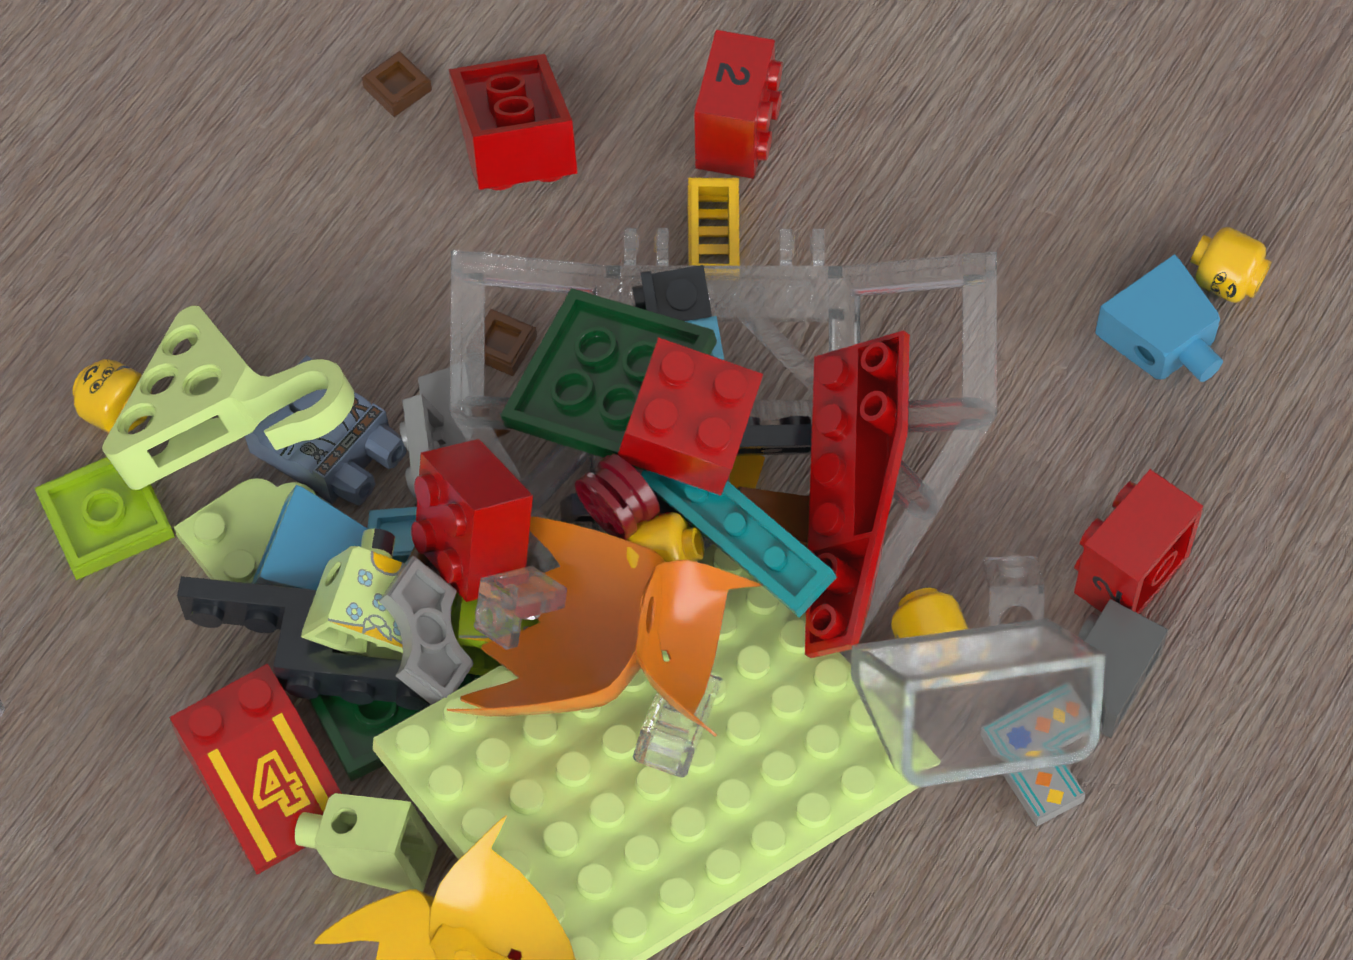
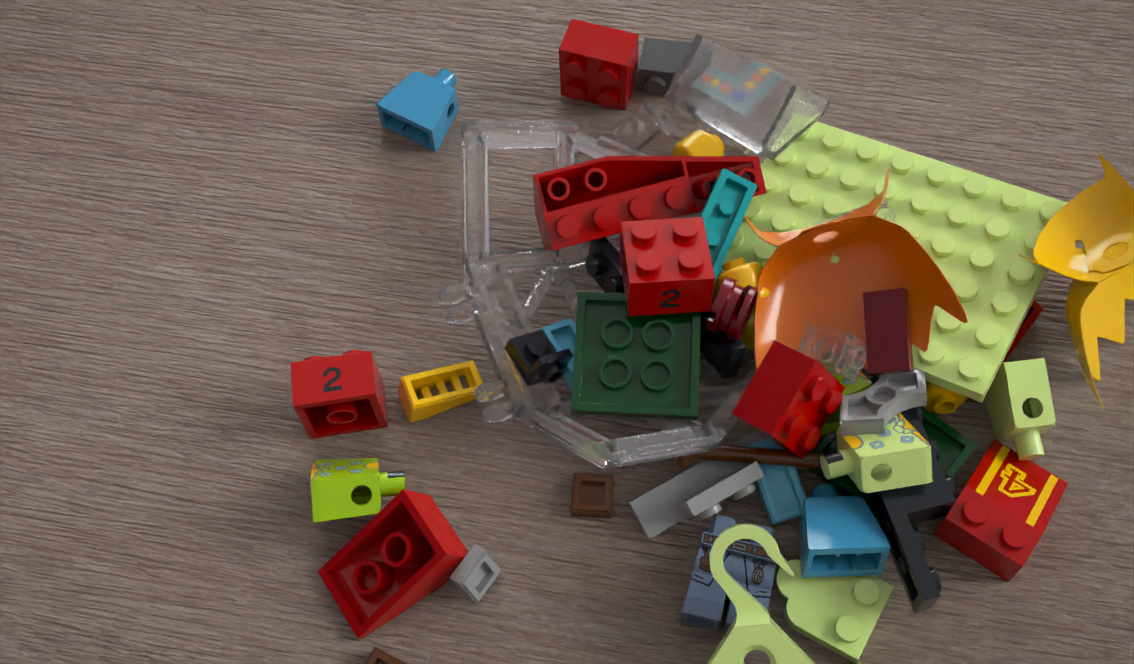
camera: 110 degrees left, 0 degrees up
(459, 188) = (475, 573): none -> light grey tile
(504, 663) = (888, 332): none -> dark red tile
(612, 84) = (336, 490): none -> lime torso
(1230, 264) = (365, 84): yellow head -> none

